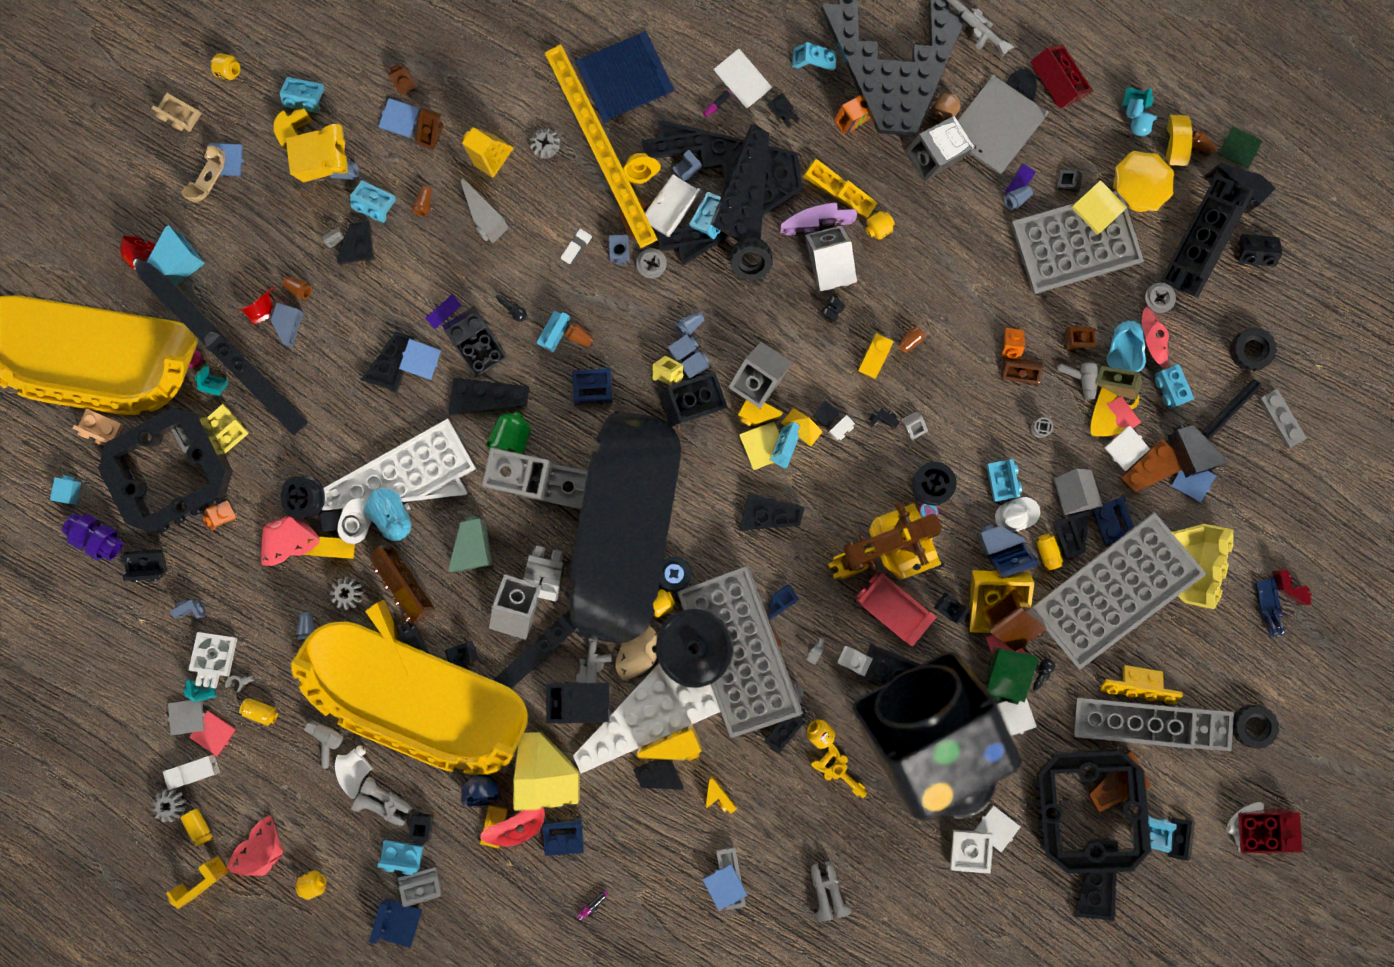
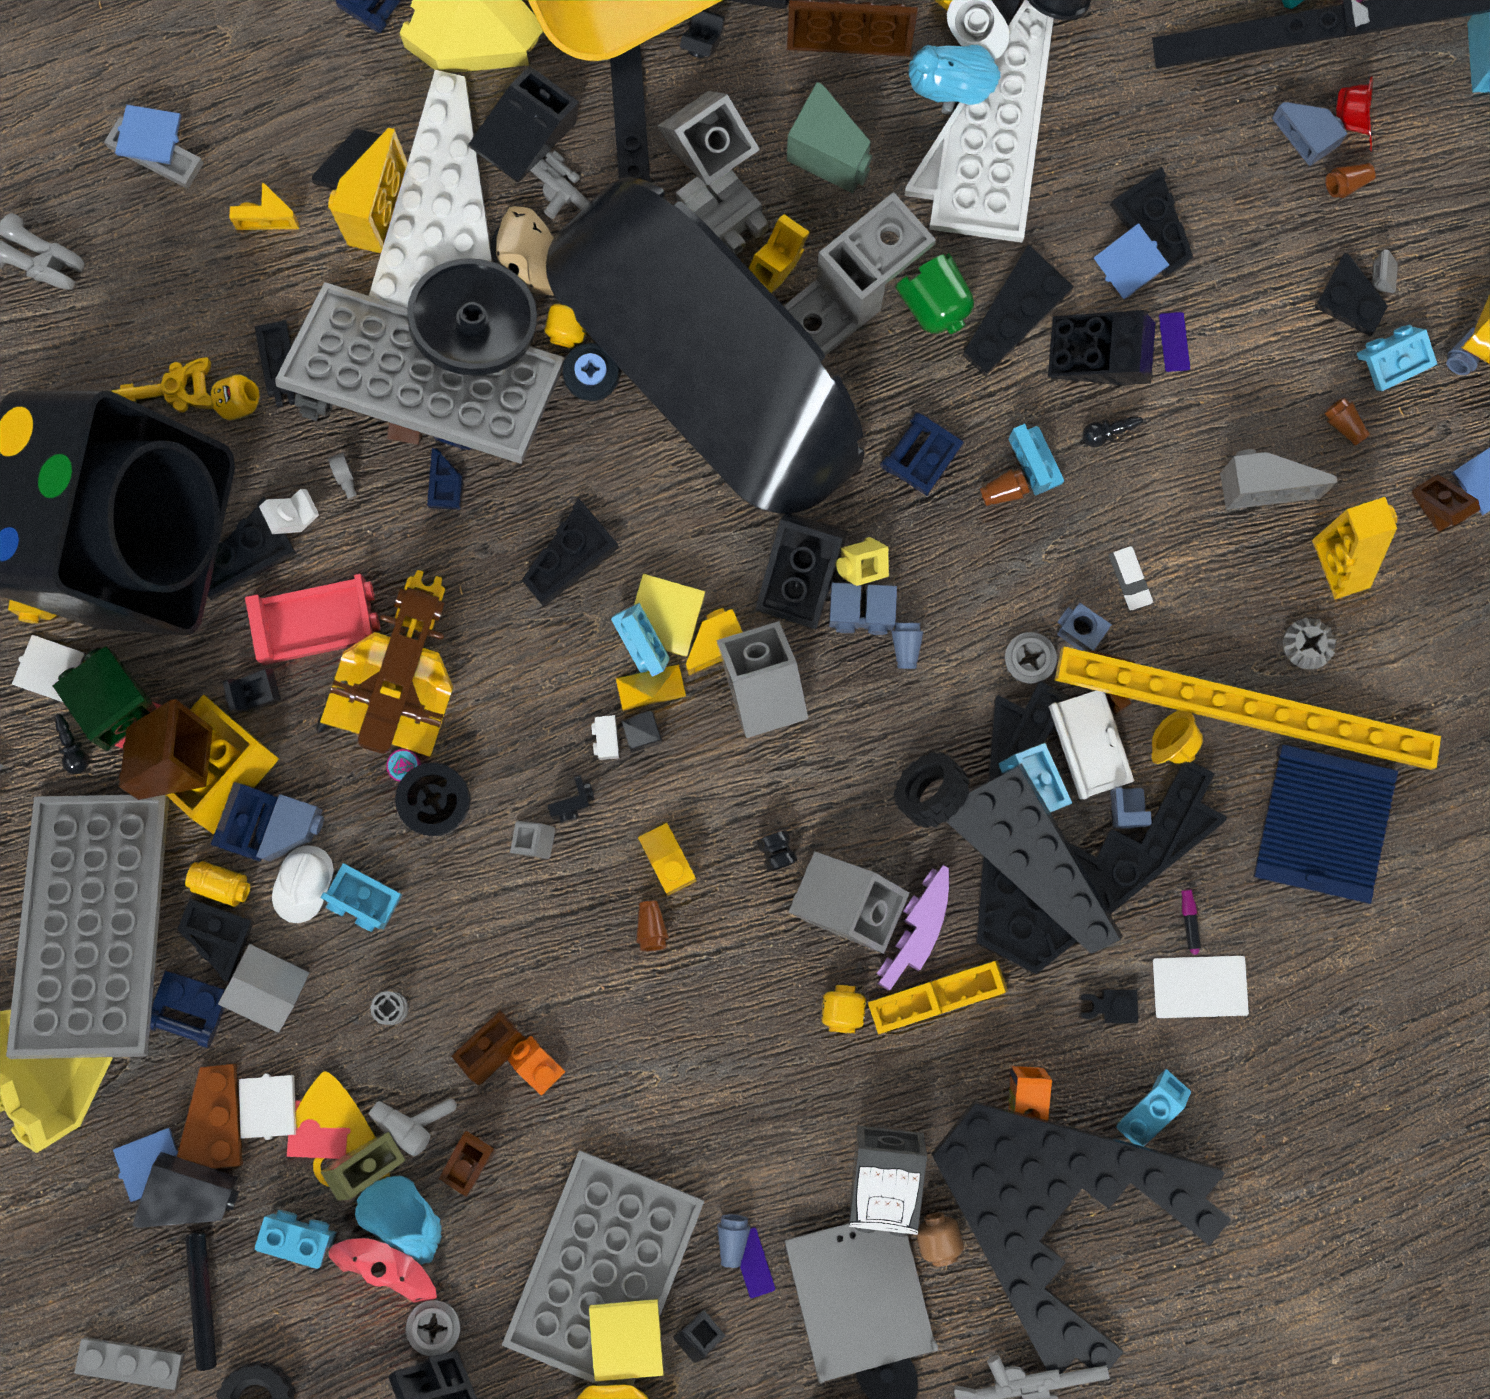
camera: 125 degrees right, 5 degrees down
(548, 528) = (780, 254): none -> yellow brick

